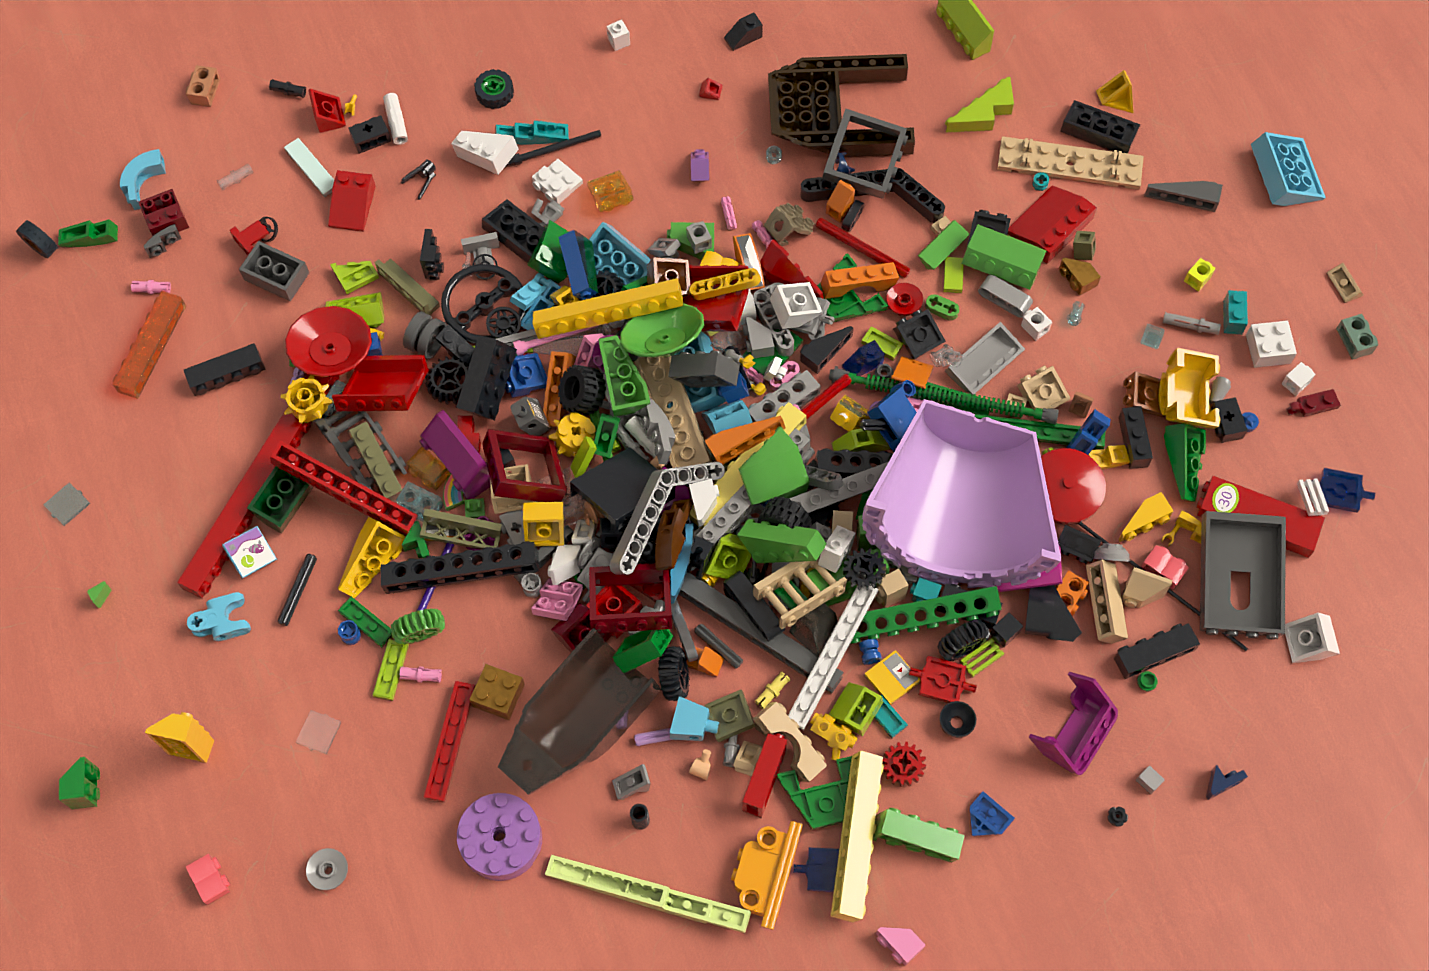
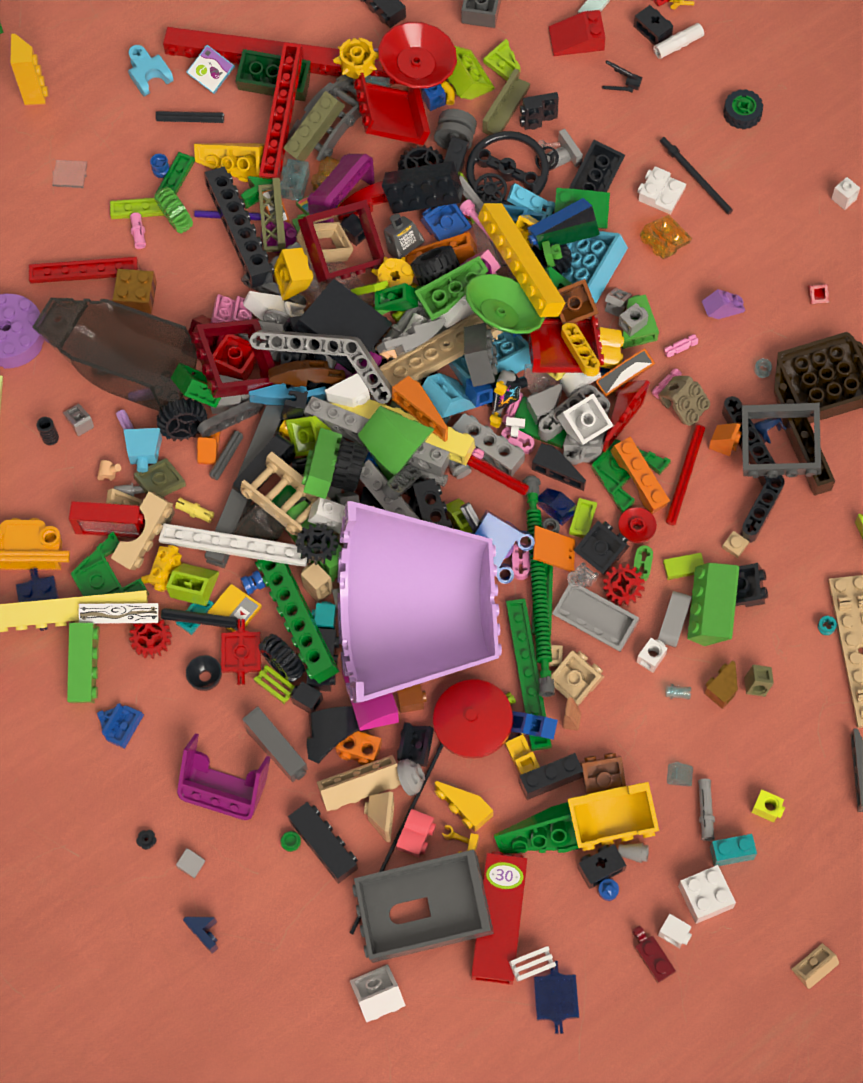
camera: 75 degrees right, 0 degrees up
(485, 149) = (668, 120): white wedge -> none
(530, 581) = (240, 287): light grey wheel -> none
(536, 133) = (705, 154): teal slope -> none
(552, 211) = (622, 195): light grey piece -> none
(606, 285) = (551, 253): none -> bright green tile
(849, 414) = (488, 498): yellow torso -> none
(853, 215) = (717, 455): black beam -> none
(878, 784) = (118, 613): none -> white tile
(897, 711) = (199, 618): none -> black axle
(943, 245) = (712, 546): bright green slope -> none
(968, 321) = (631, 584): none -> red gear
(1050, 669) = (274, 744): none -> dark grey slope
(1053, 221) = (780, 645): red slope -> none
(1353, 338) = (745, 982): sand green brick -> none

